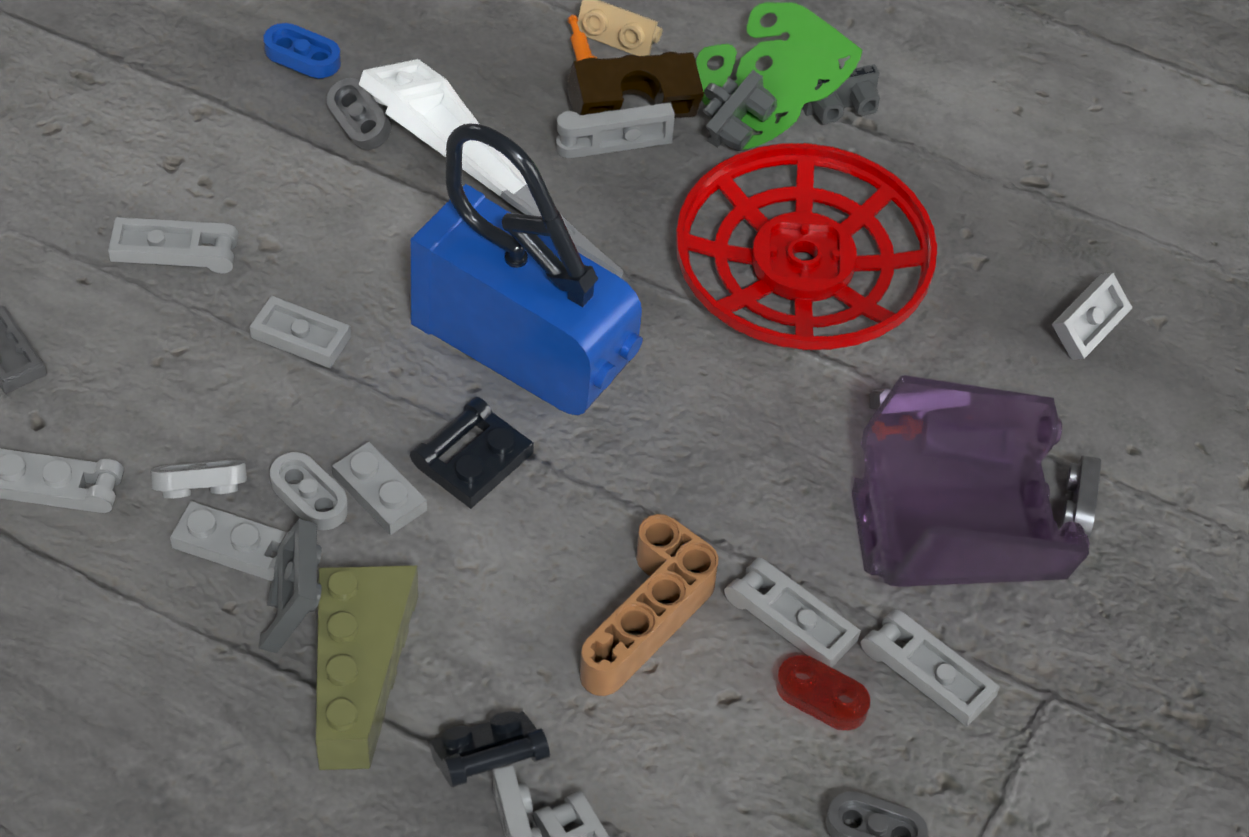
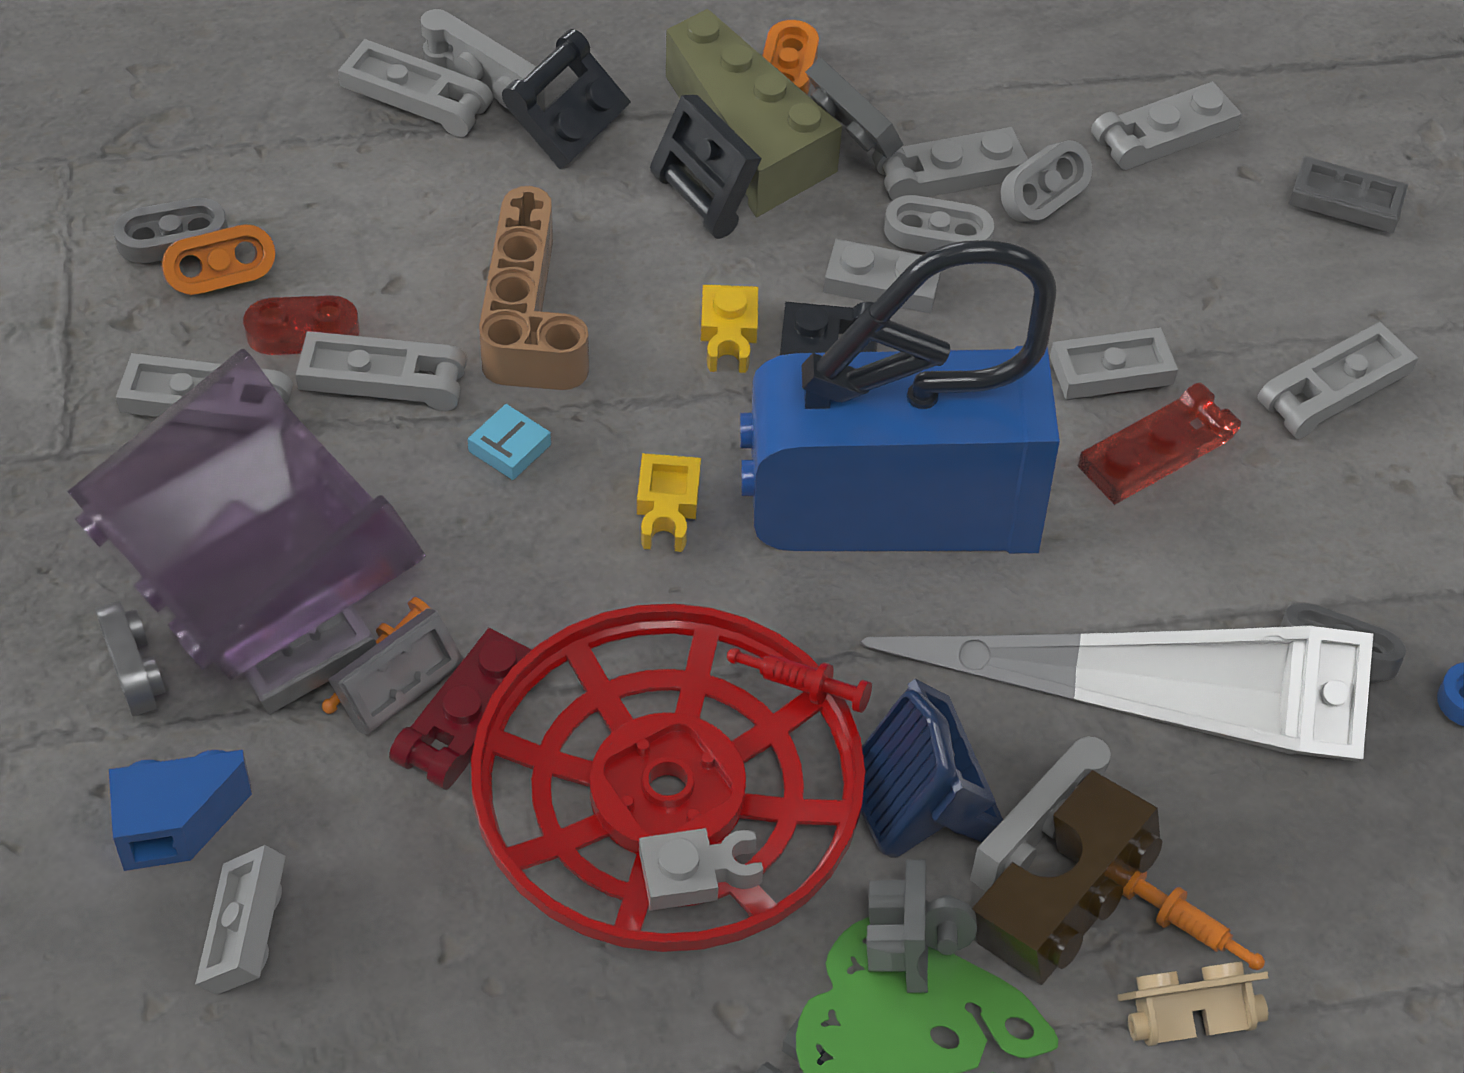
camera: 145 degrees right, 0 degrees up
(270, 698) = (792, 50): none -> orange plate
(324, 277) = (1158, 444): none -> clear red plate
(439, 612) = (714, 155): none -> black plate
(518, 519) = (729, 323): none -> yellow plate
(663, 161) = (923, 775): none -> dark blue piece
(668, 415) = (667, 496): none -> yellow plate
(693, 220) = (805, 678): none -> red piece
(739, 515) = (509, 441): none -> medium azure tile
(838, 180) = (687, 869): none -> light grey plate
(840, 767) = (218, 259): none -> orange plate
(881, 366) = (456, 711): none -> dark red plate
(1099, 393) = (174, 806): none -> blue slope

